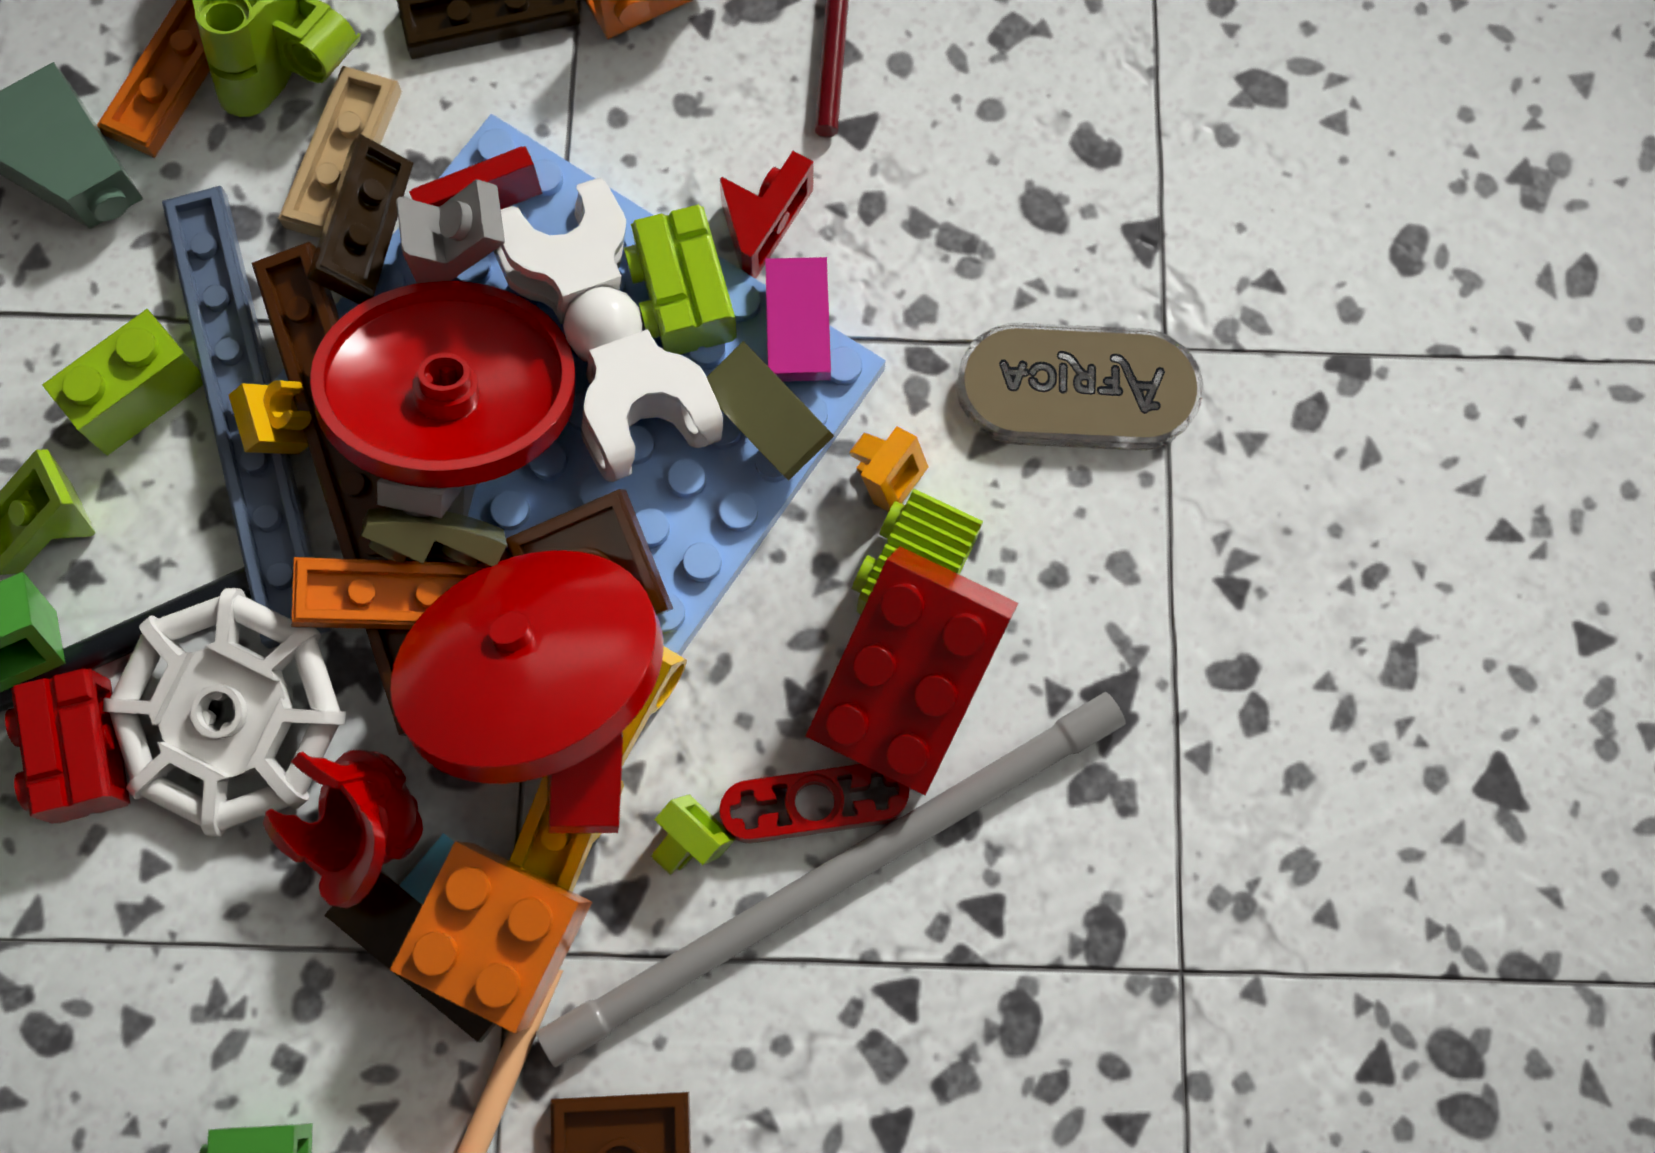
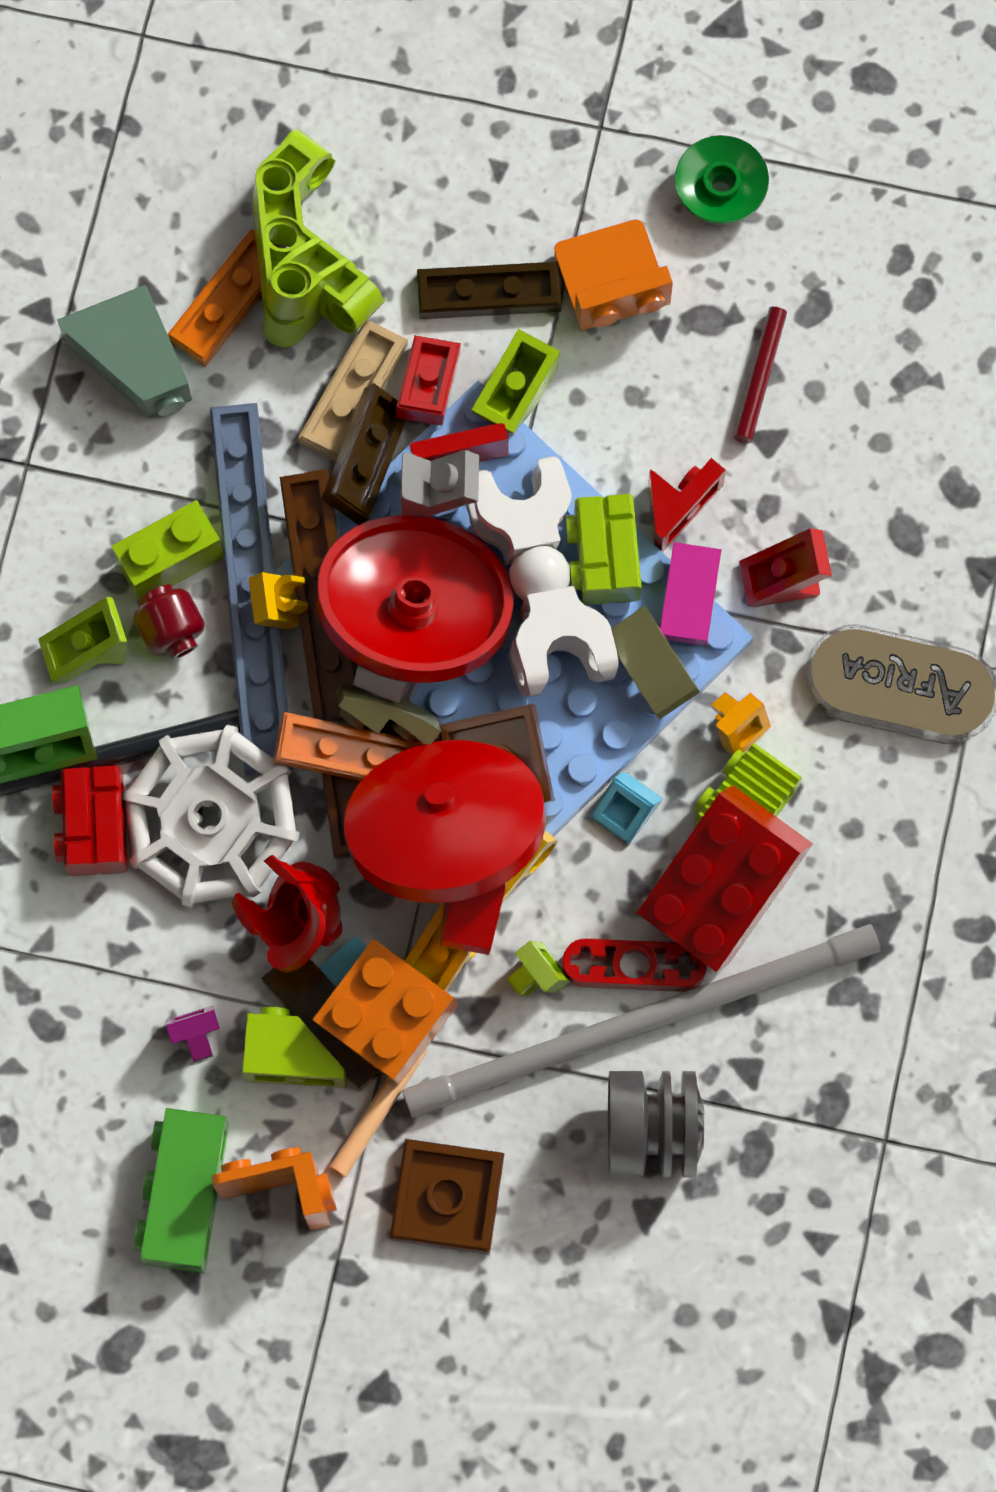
camera: 15 degrees right, 0 degrees up
(138, 470) = (168, 621): none -> dark red head
(241, 1008) = (193, 1028): none -> magenta tile
(368, 1010) = (287, 1052): none -> lime slope
(429, 123) = (428, 380): none -> red plate
(538, 98) = (517, 382): none -> lime slope
(765, 600) = (625, 807): none -> medium azure slope
(882, 1020) = (653, 1124): none -> flat silver wheel
(912, 270) = (786, 570): none -> red slope

